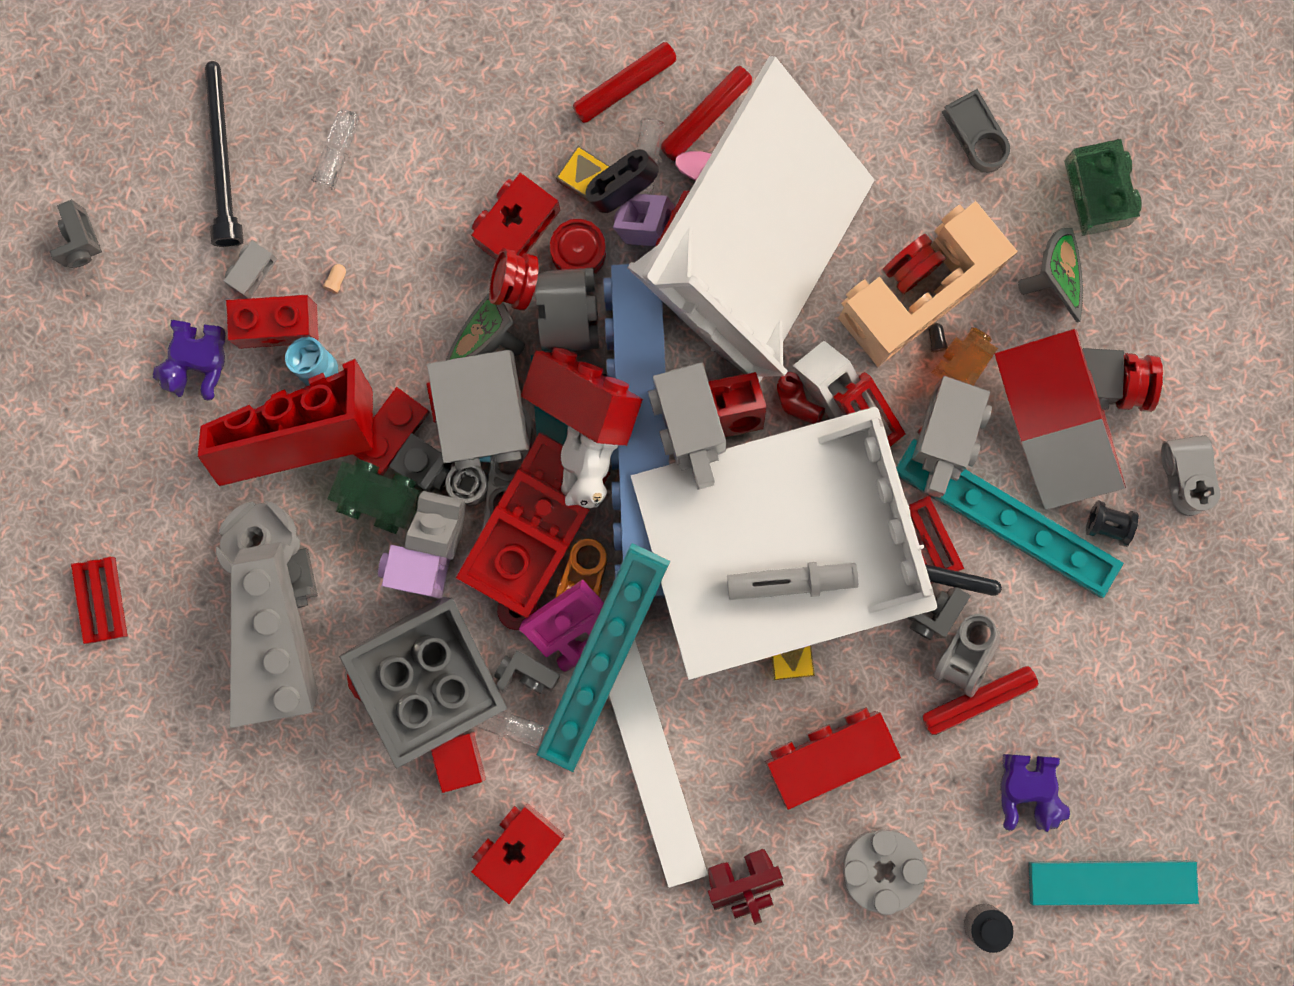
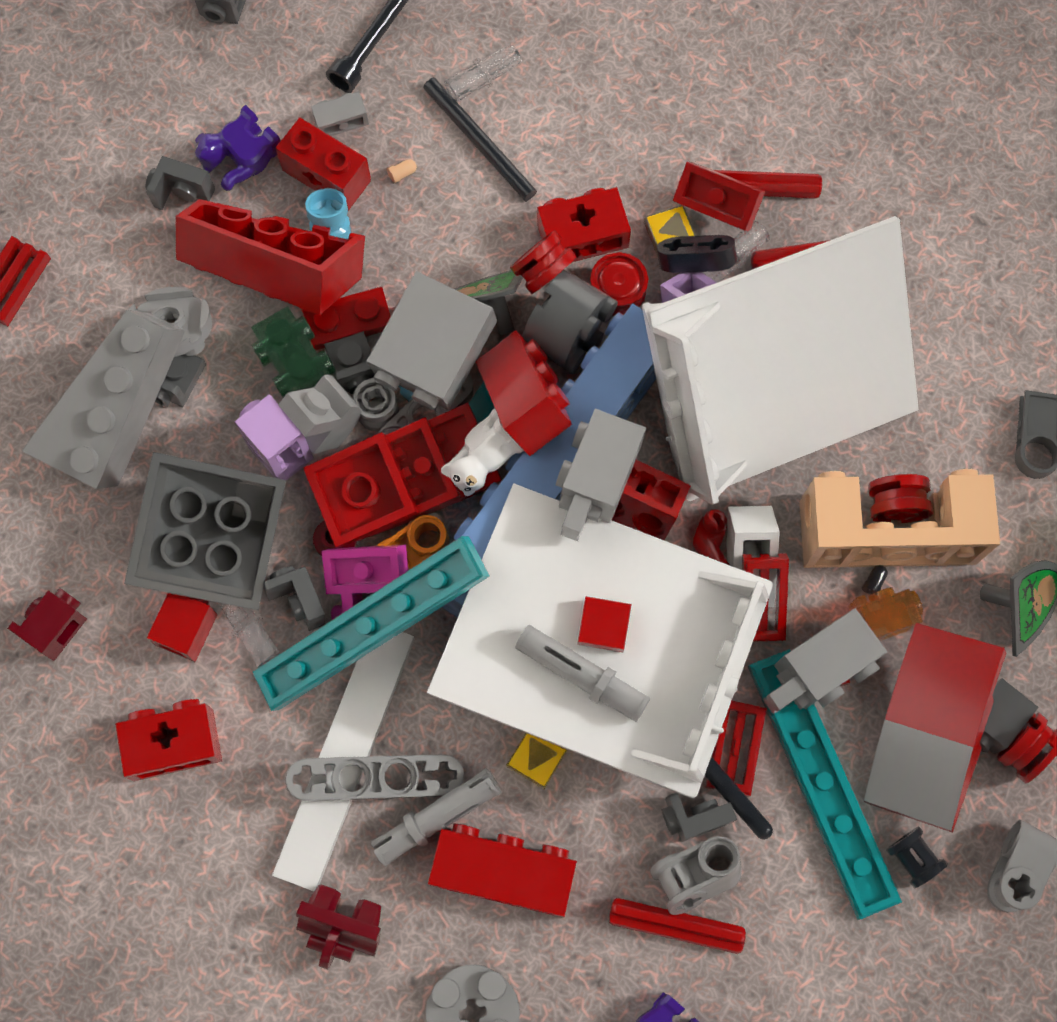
camera: 35 degrees right, 10 degrees down
(174, 417) = (180, 178): none -> dark grey bracket
(357, 835) = (50, 623): none -> dark red brick
(375, 207) = (480, 139): none -> black bar
(603, 120) = (718, 196): none -> red plate
(690, 765) = (374, 771): none -> light grey beam
(753, 759) = (443, 812): none -> light grey pin
(780, 532) = (604, 624): none -> red tile

